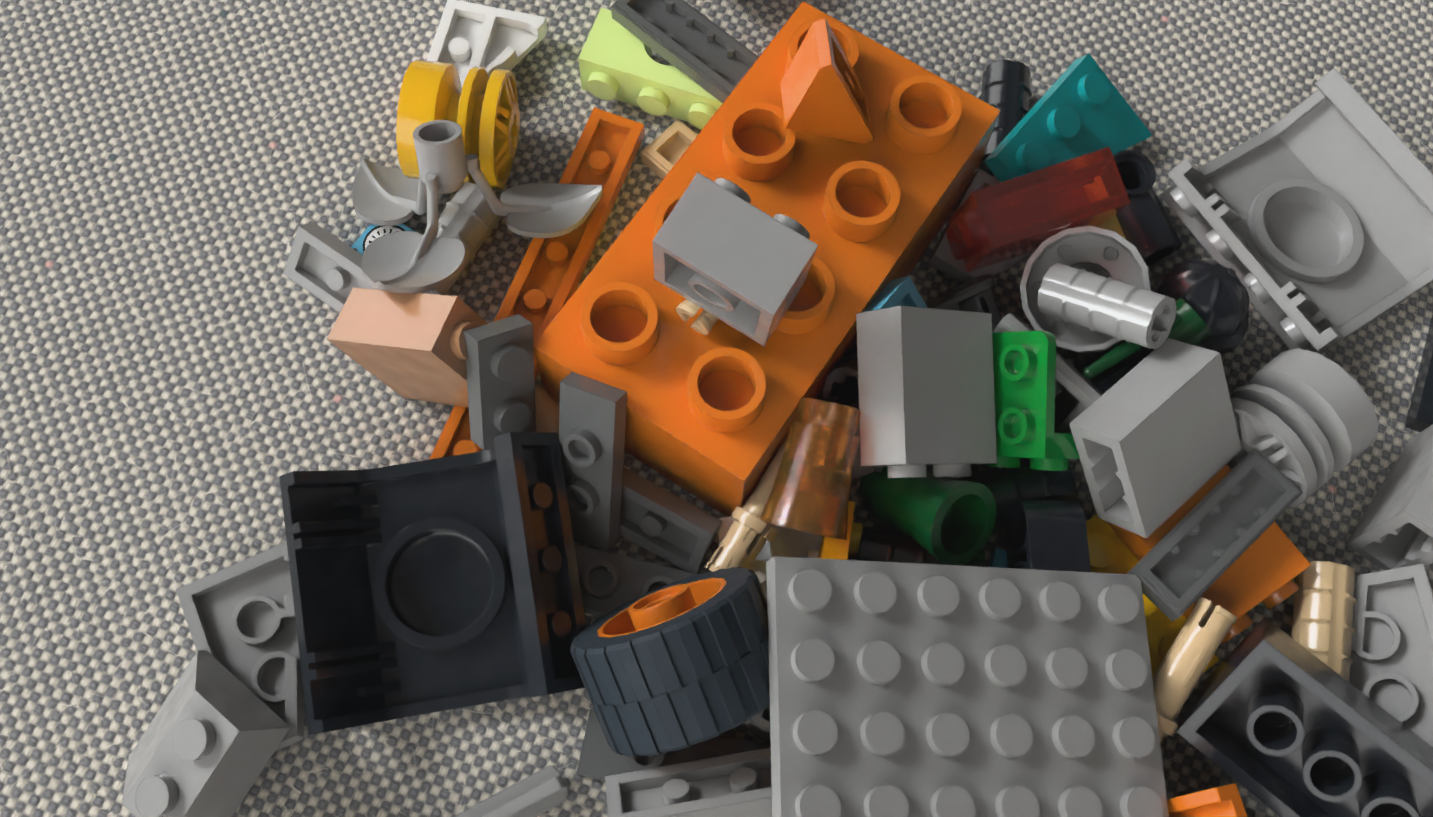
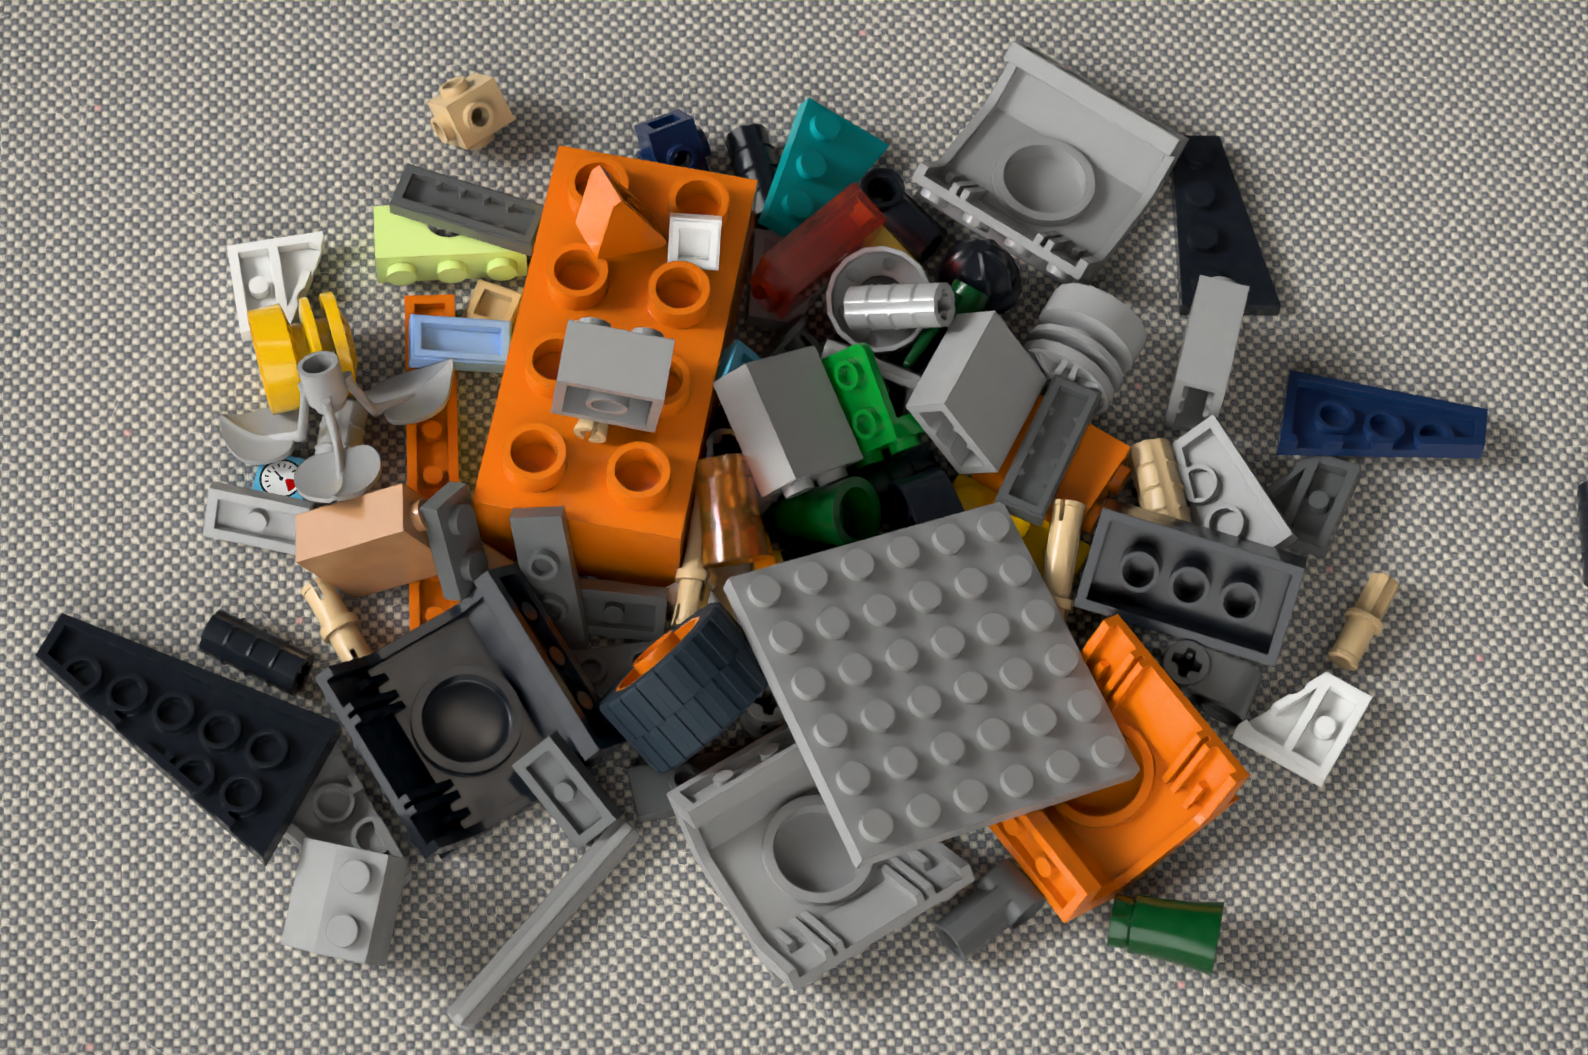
camera: 25 degrees left, 5 degrees down
(161, 491) = (215, 739): none -> black wing
(267, 416) = (256, 652): none -> black axle
(364, 419) = (338, 624): none -> tan pin
(506, 715) = (567, 789): none -> plate
(621, 169) = (470, 342): none -> light blue tile
(904, 146) = (695, 239): none -> white tile
(933, 43) = (673, 141): none -> dark blue brick

